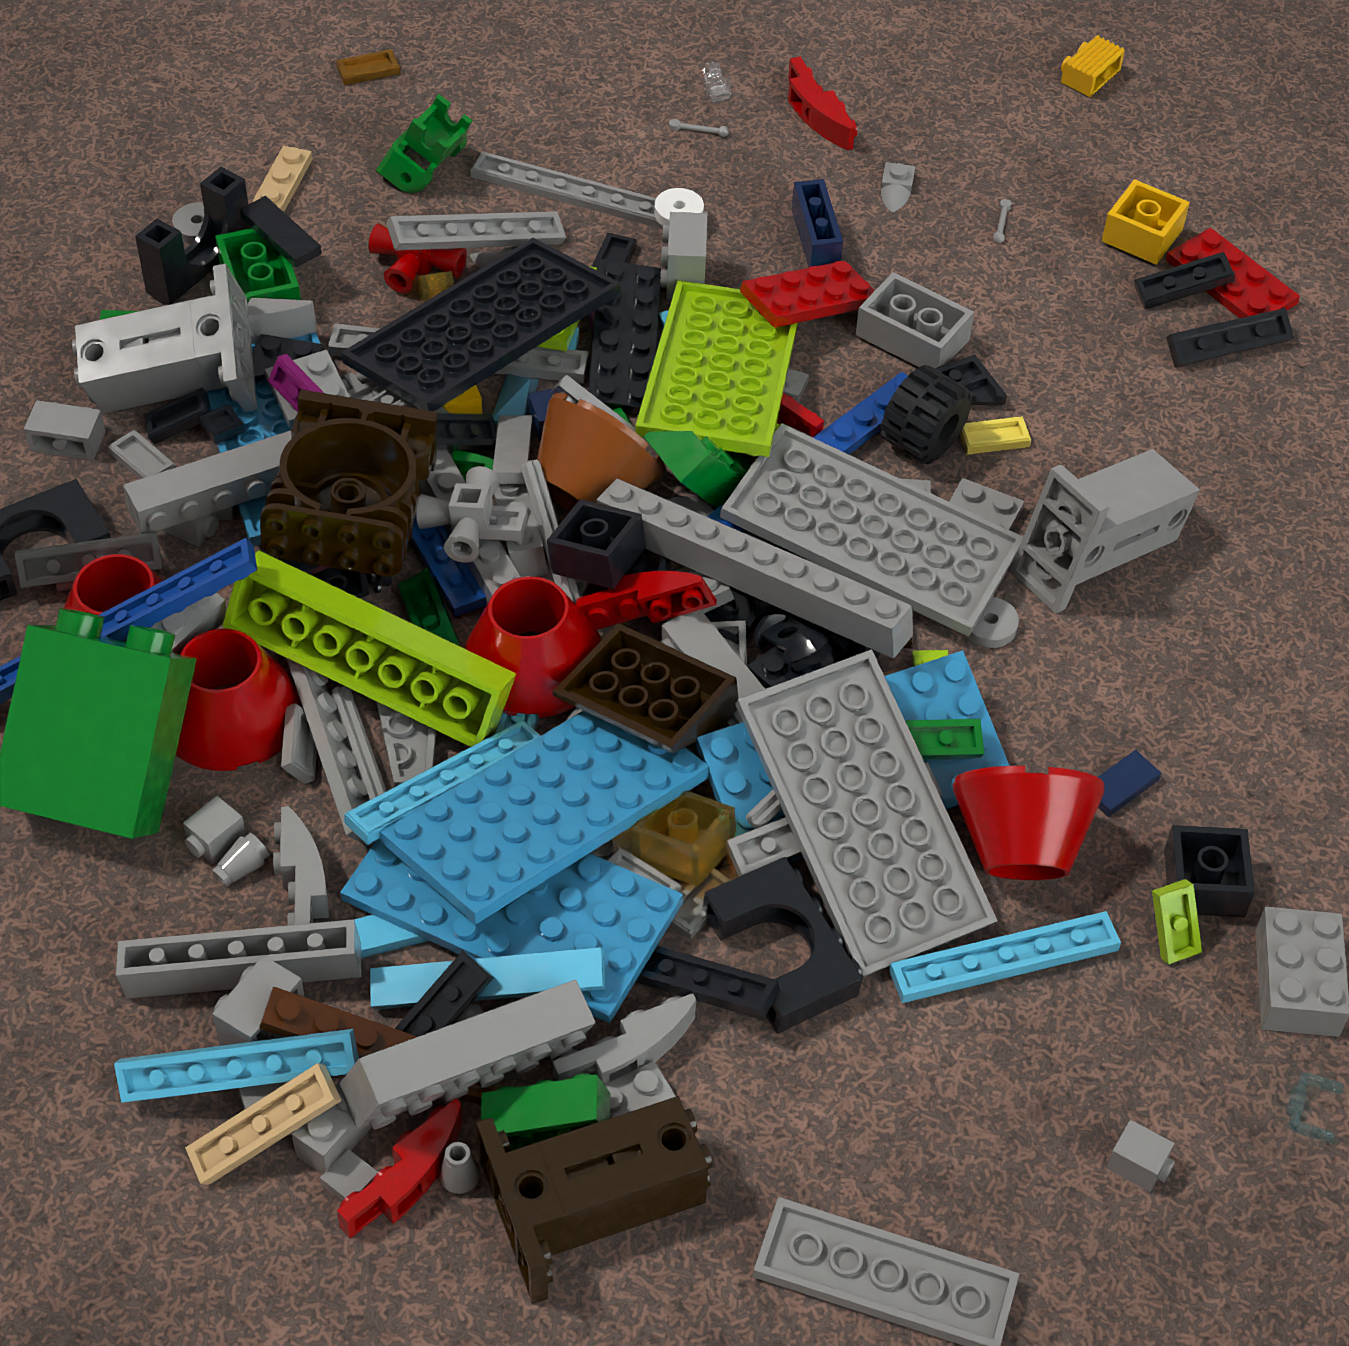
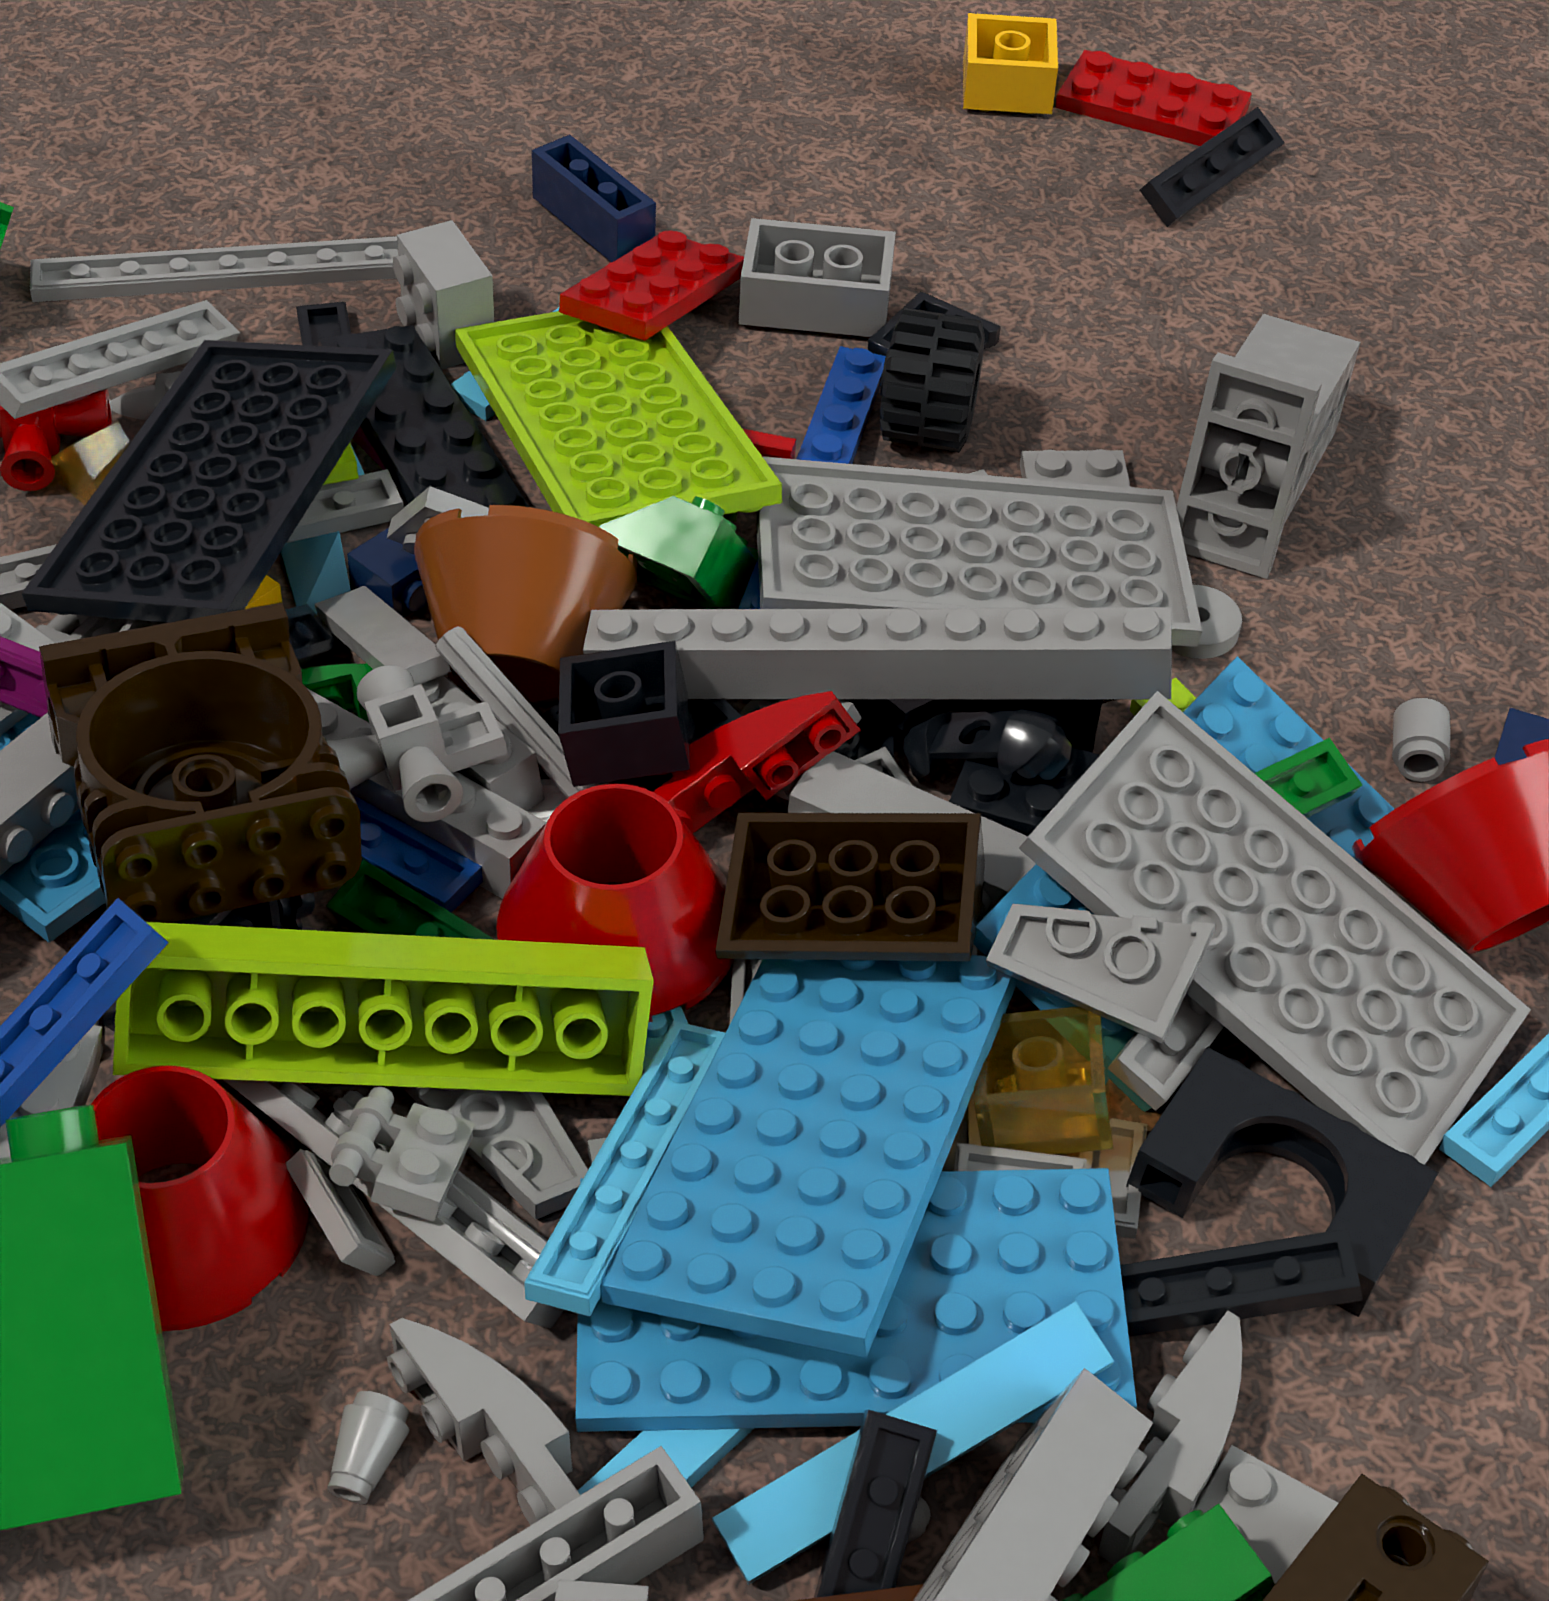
camera: 30 degrees left, 5 degrees down
(213, 830) = (290, 1417): light grey brick -> none
(344, 736) = (421, 1159): none -> light grey plate
(675, 124) = (290, 143): light grey hinge -> none
(676, 201) = (372, 240): white piece -> none
(716, 85) = (312, 73): clear piece -> none
(743, 786) = (1105, 964): none -> light grey wing
(818, 108) = (479, 62): red slope -> none
(896, 185) = (650, 123): light grey plate -> none
(995, 435) = (1019, 384): light yellow tile -> none
(1005, 205) = (830, 144): light grey hinge -> none
(1063, 744) = (1421, 739): none -> light grey brick
(1184, 280) = (1106, 118): black tile -> none

